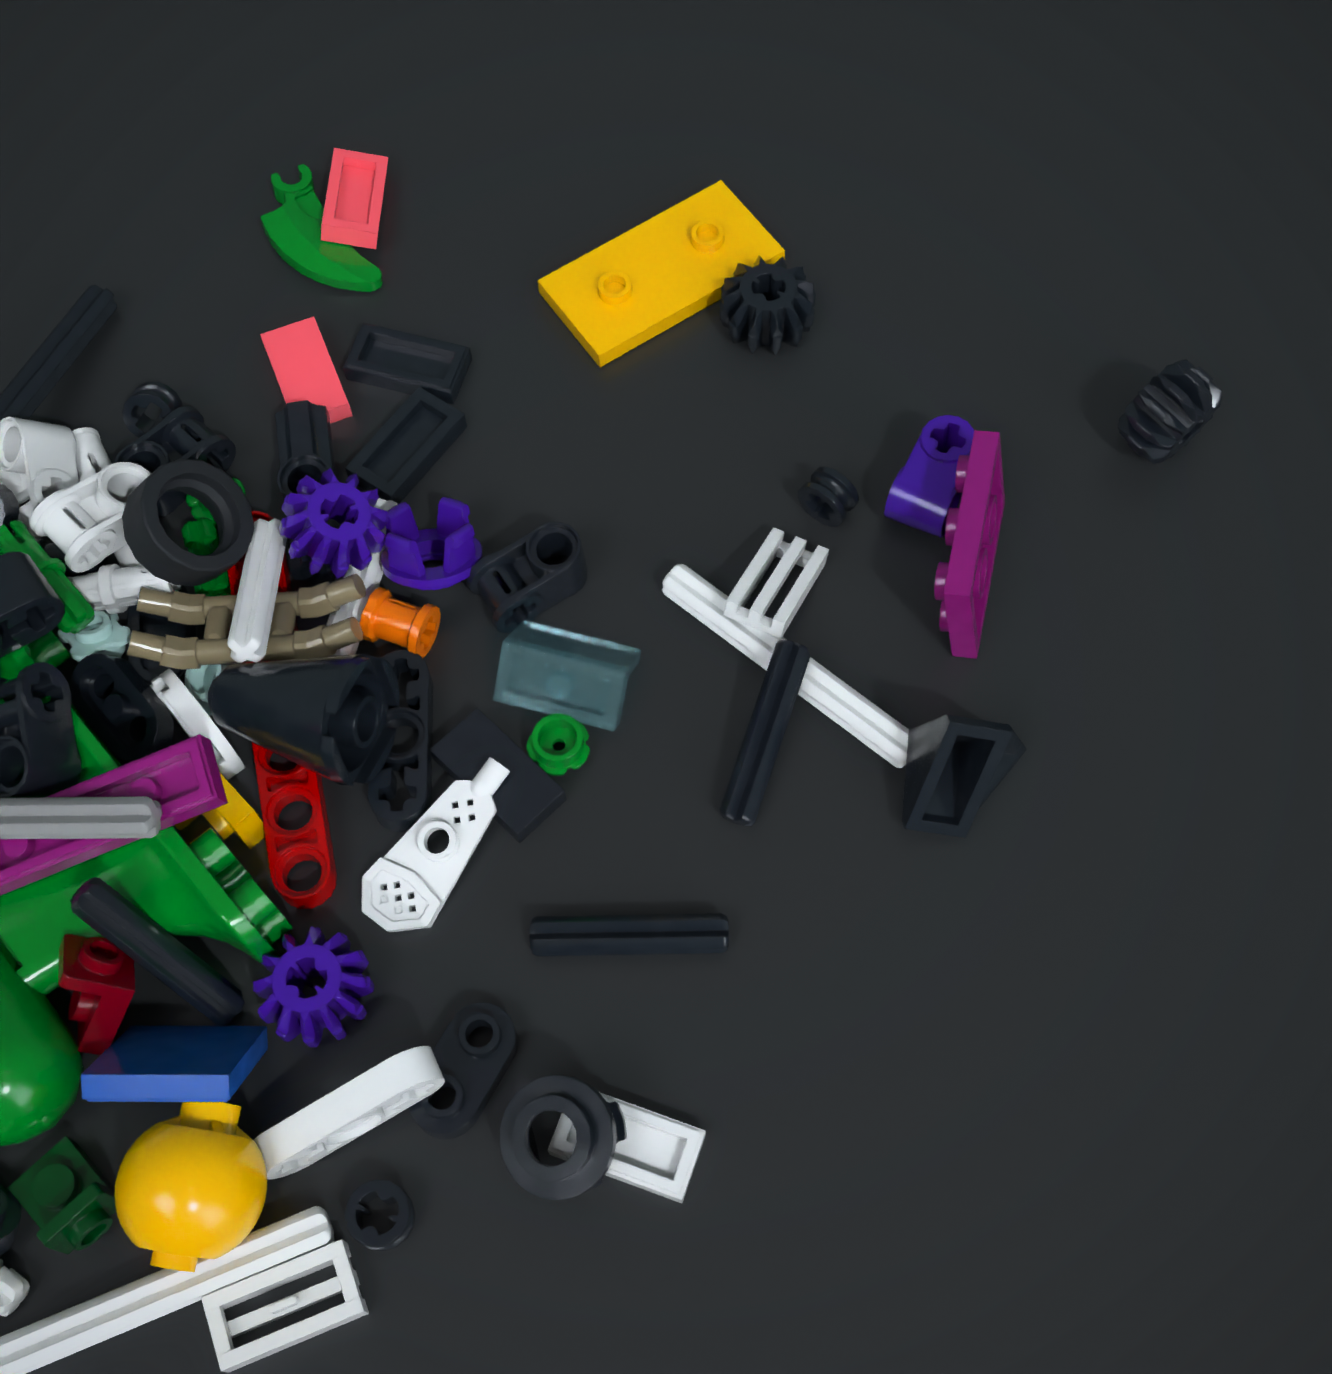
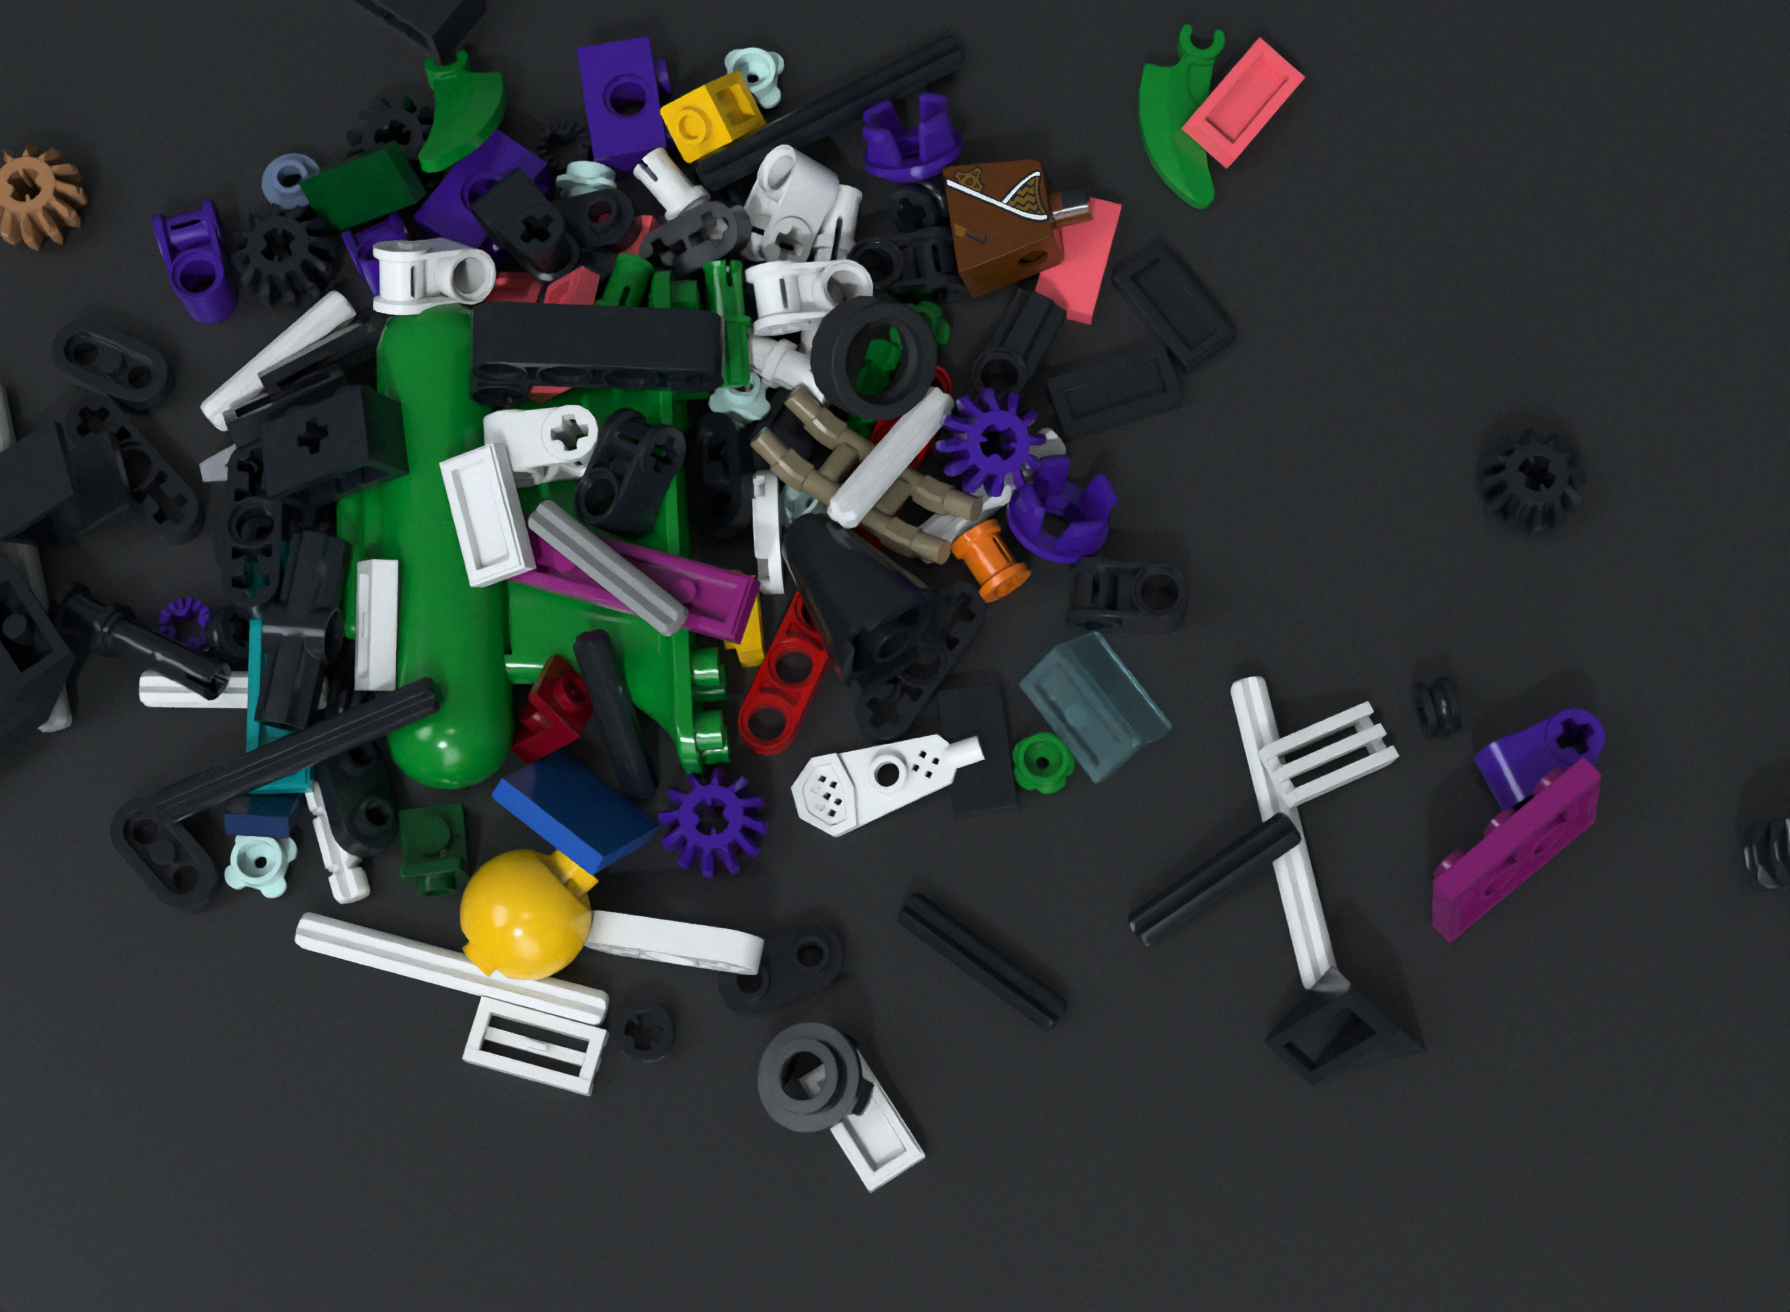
camera: 40 degrees right, 10 degrees up
(128, 372) = (911, 152): none -> dark purple piece
(232, 372) = (1008, 221): none -> reddish brown torso
(657, 272) = (1467, 374): yellow plate -> none

